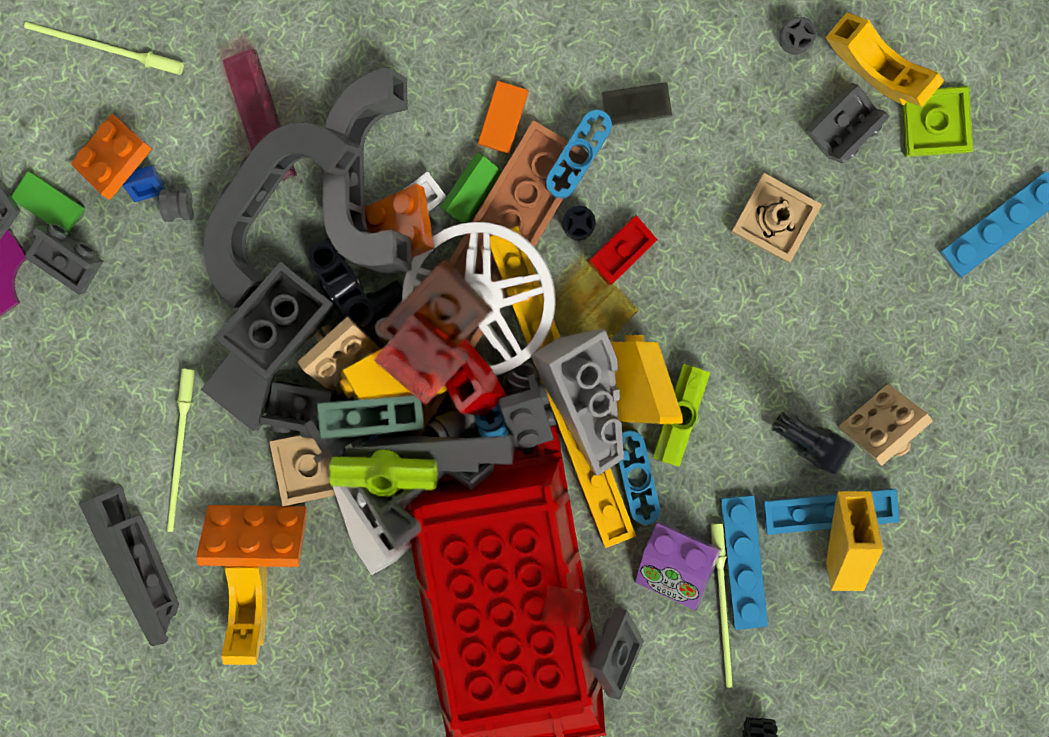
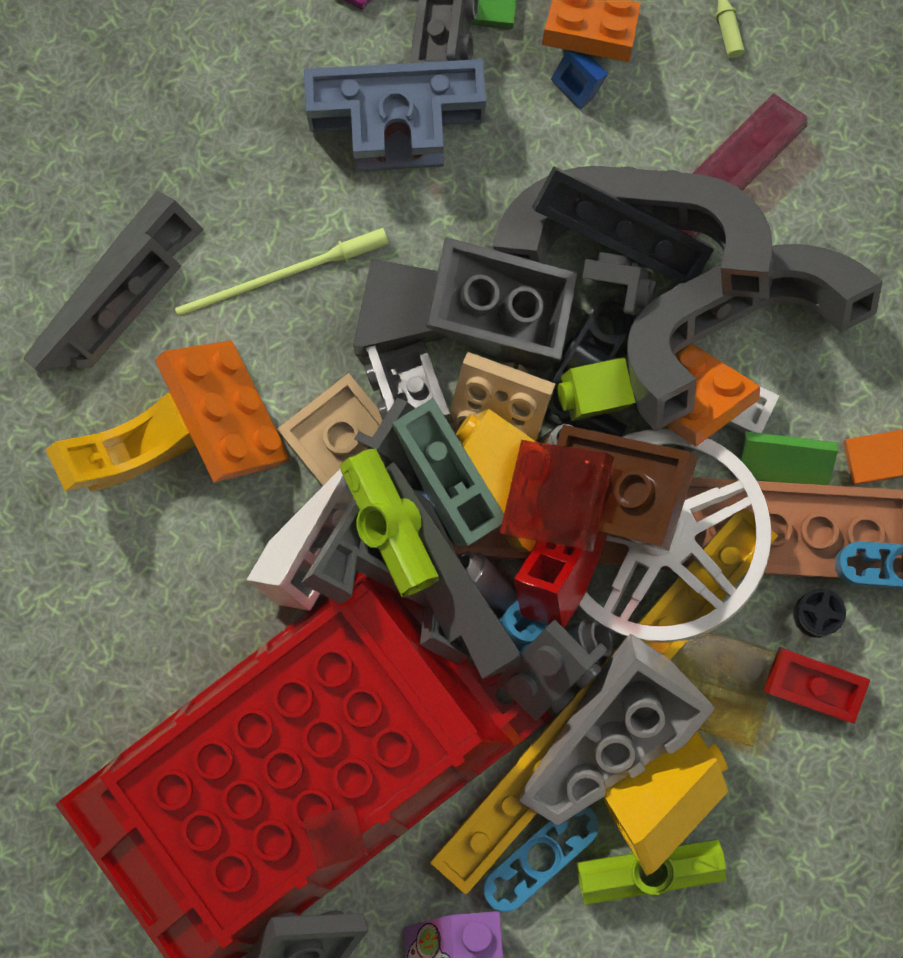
camera: 65 degrees right, 10 degrees down
(104, 319) = (396, 108): none -> sand blue piece
(176, 204) = (575, 124): dark grey wheel -> none
(264, 215) = (621, 227): none -> black plate
(294, 232) = (618, 271): none -> dark grey bracket
(364, 292) = (596, 389): none -> lime brick

